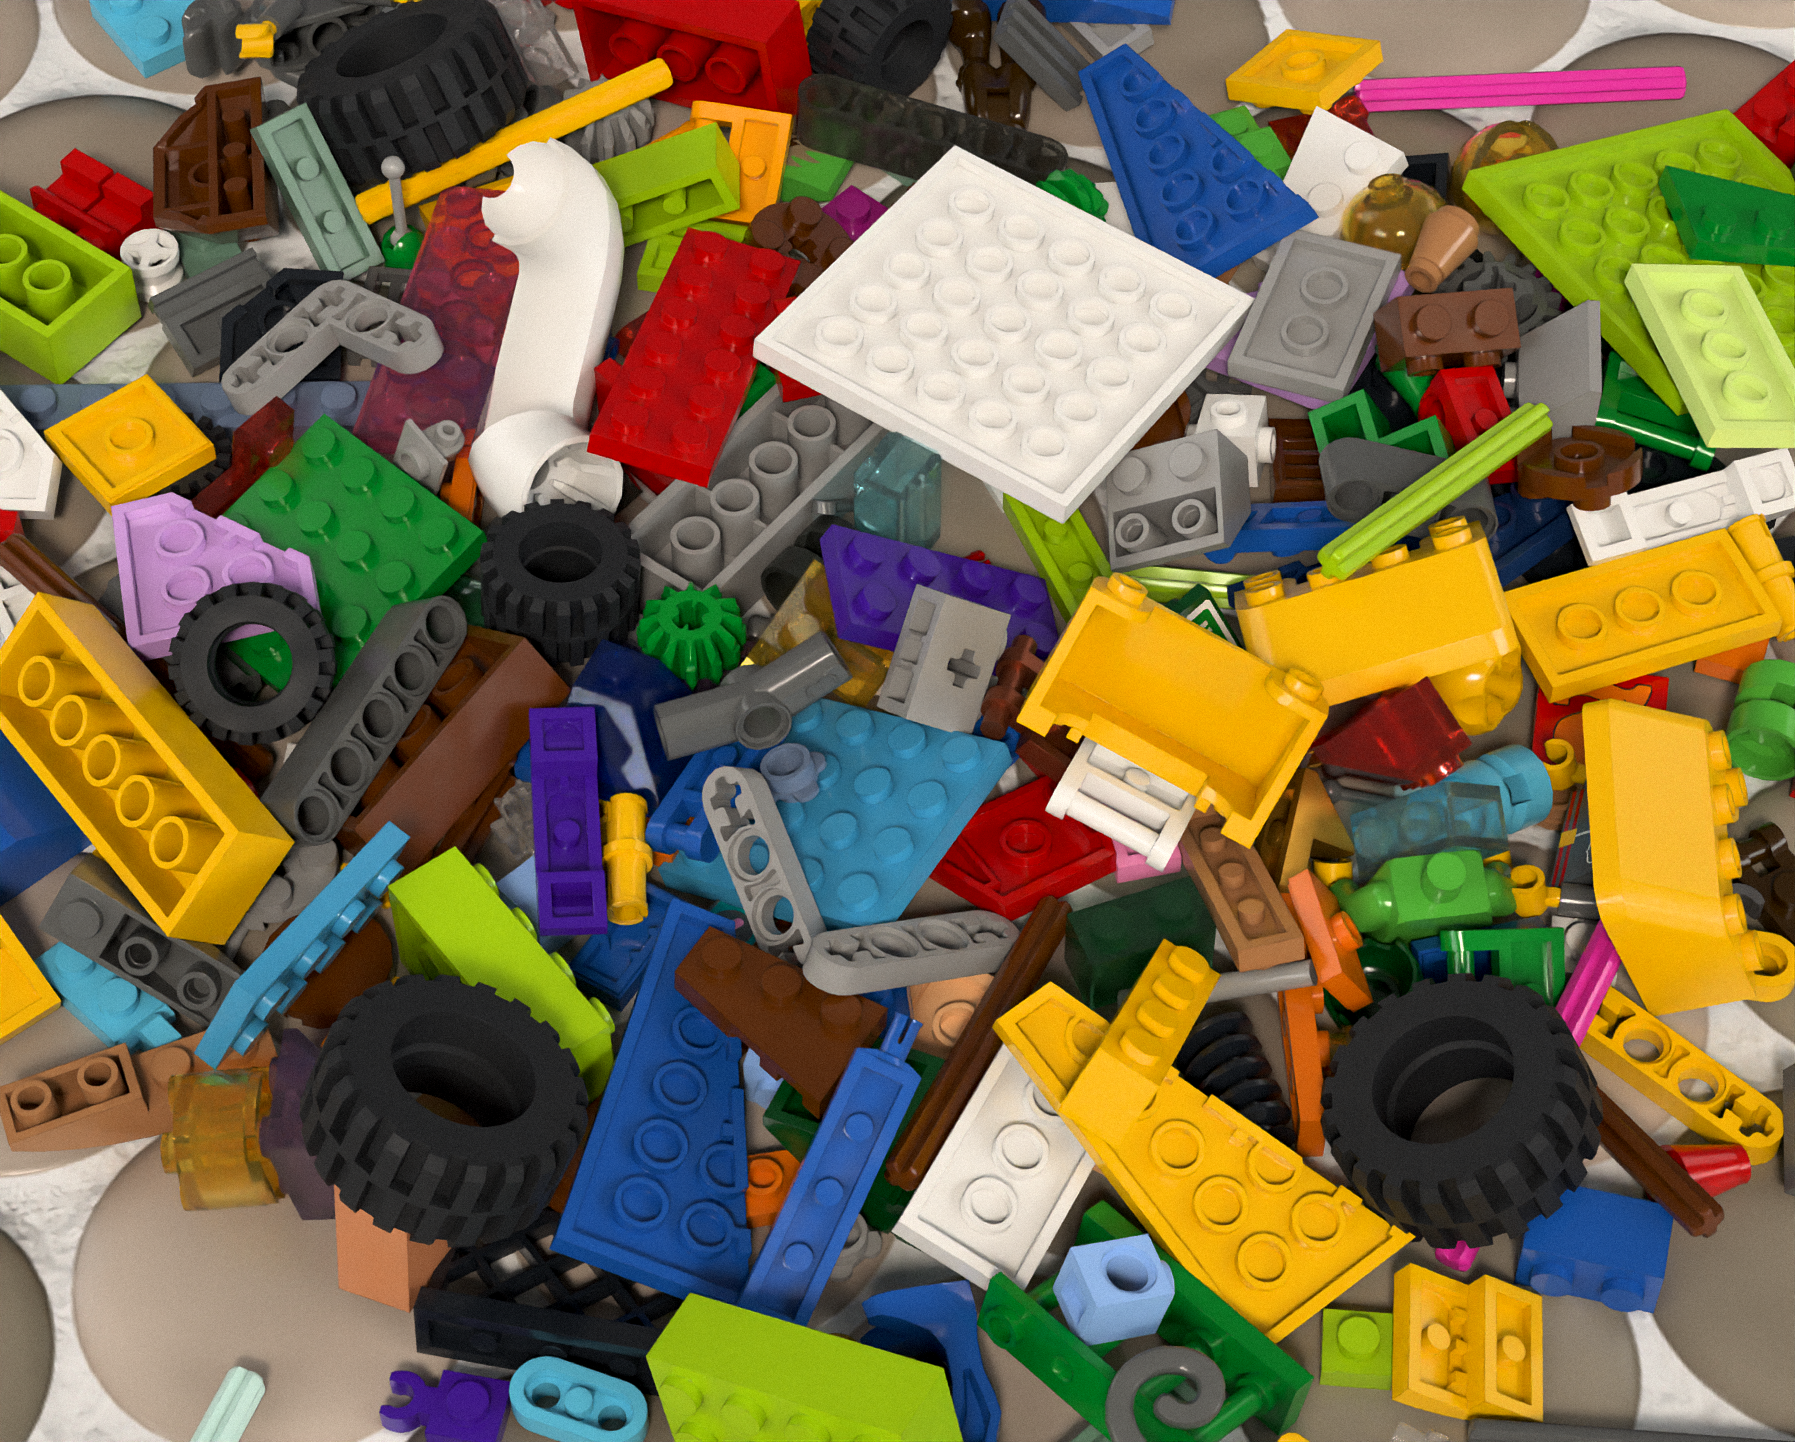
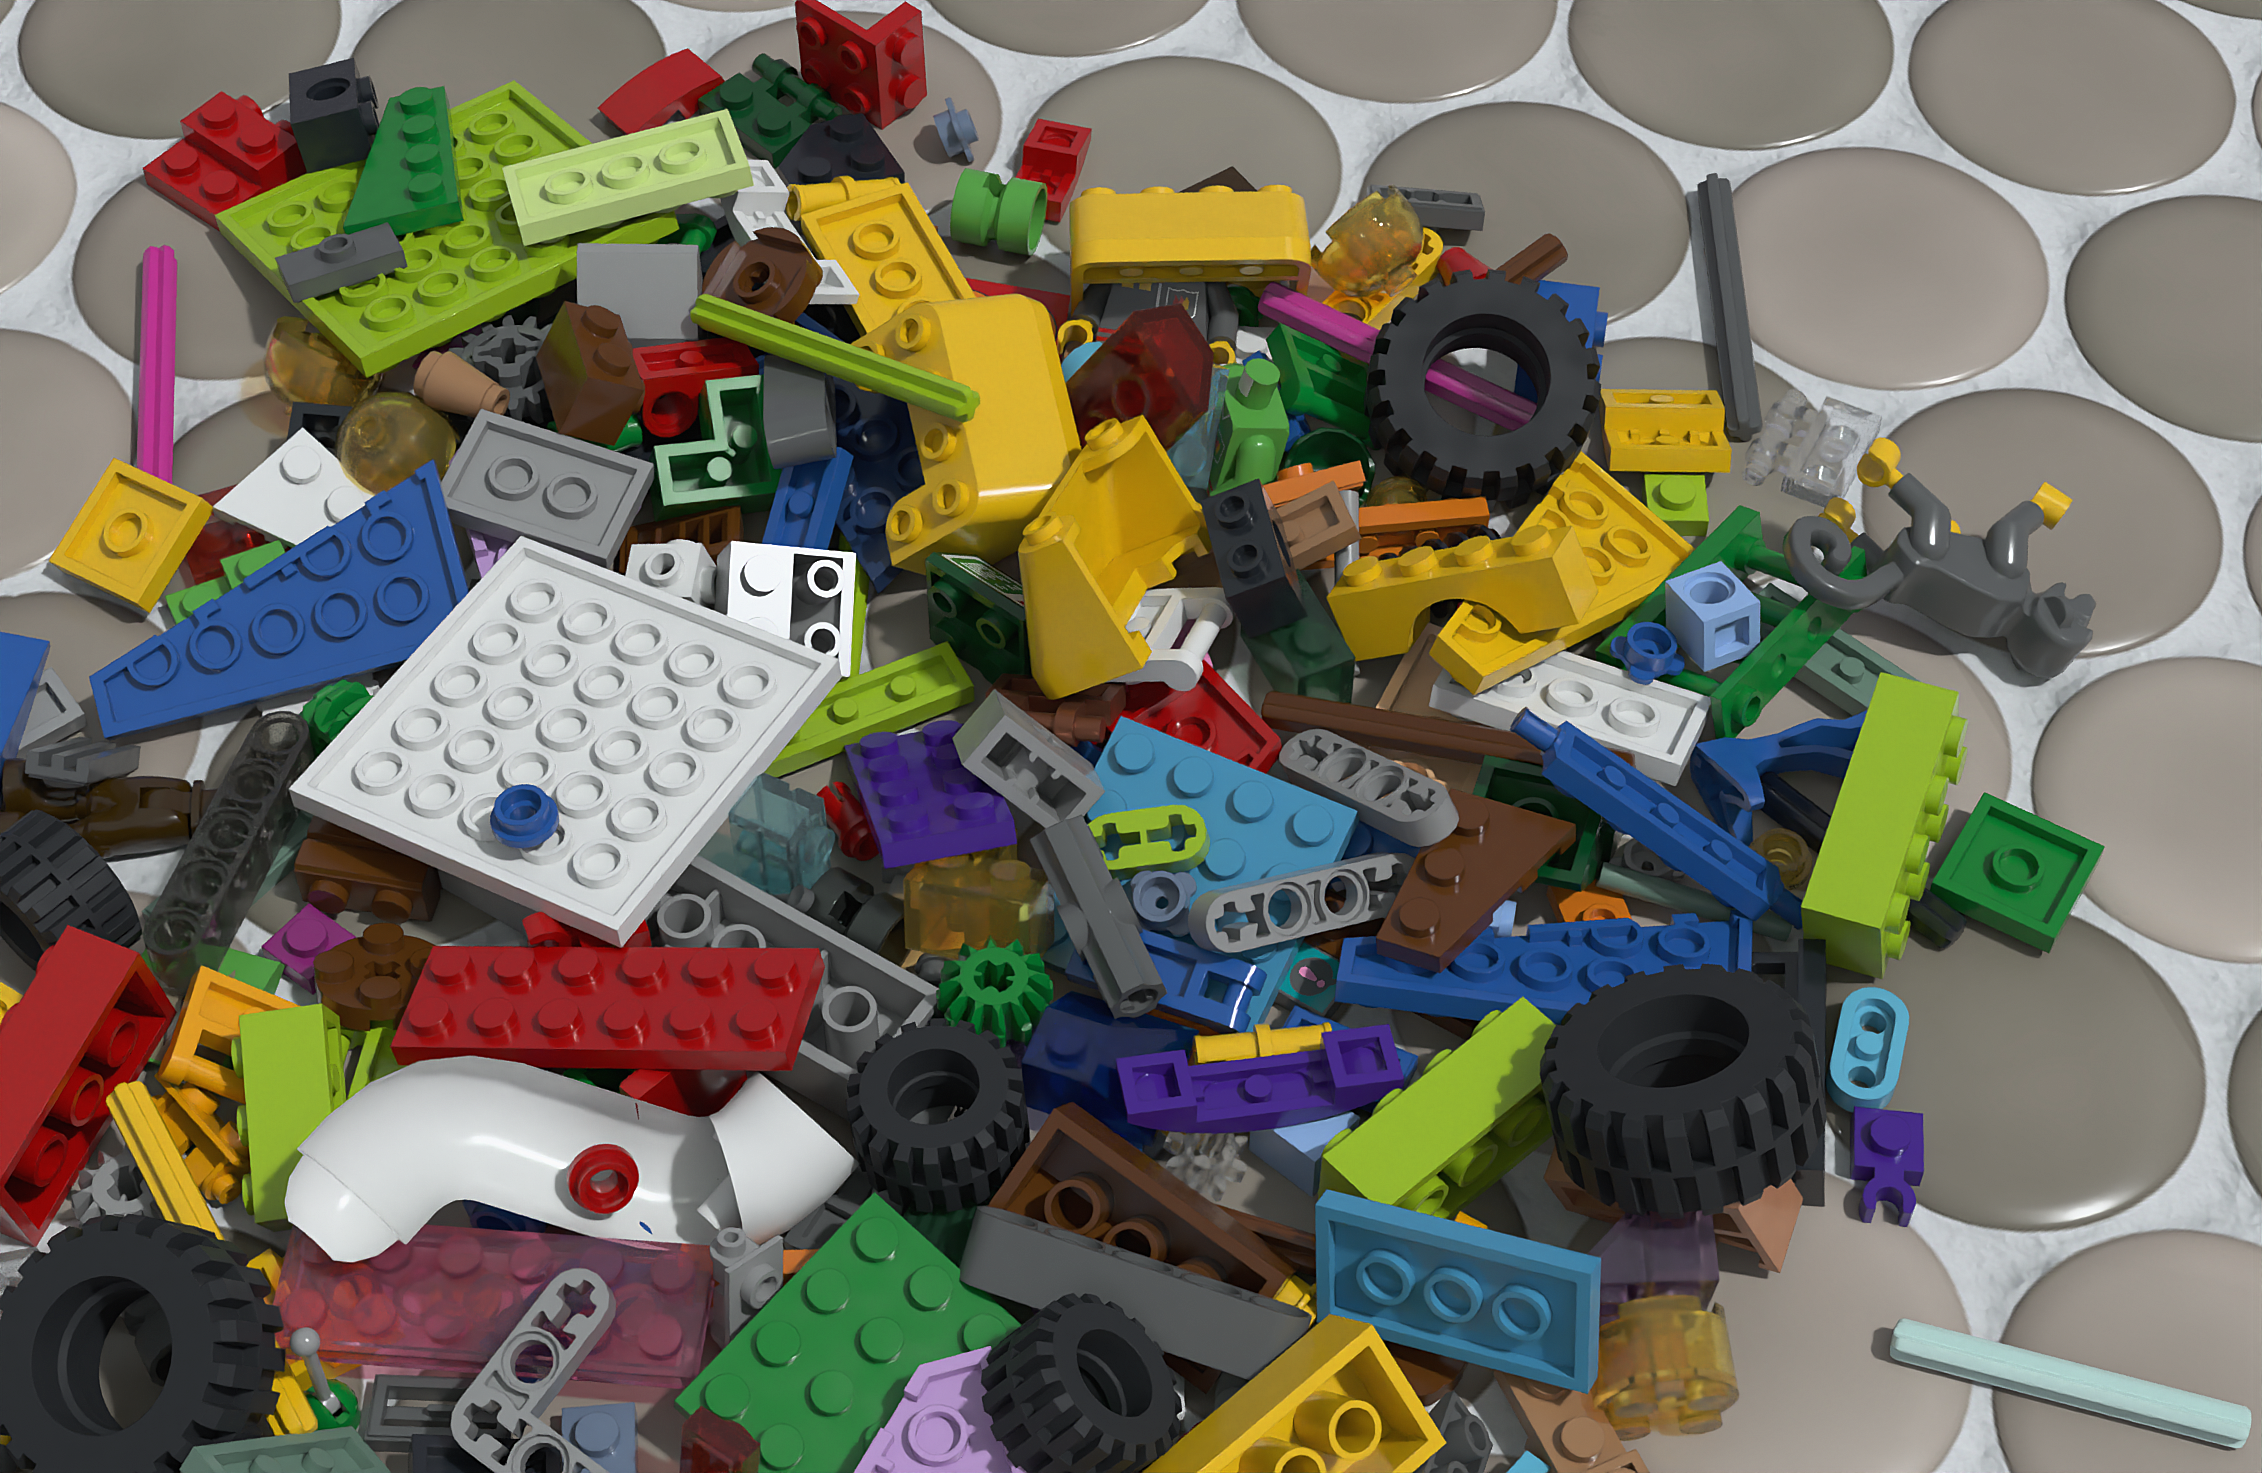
camera: 95 degrees left, 0 degrees up
(544, 370) = (604, 1195): none -> red plate
(865, 757) = (1147, 826): none -> lime beam
(881, 273) = (524, 816): none -> blue plate
(1082, 1215) = (1648, 652): none -> blue plate
(1222, 873) = (1254, 558): none -> black brick
(1621, 169) = (341, 262): none -> dark grey plate
(1701, 1039) = (1372, 247): none -> clear yellow cylinder

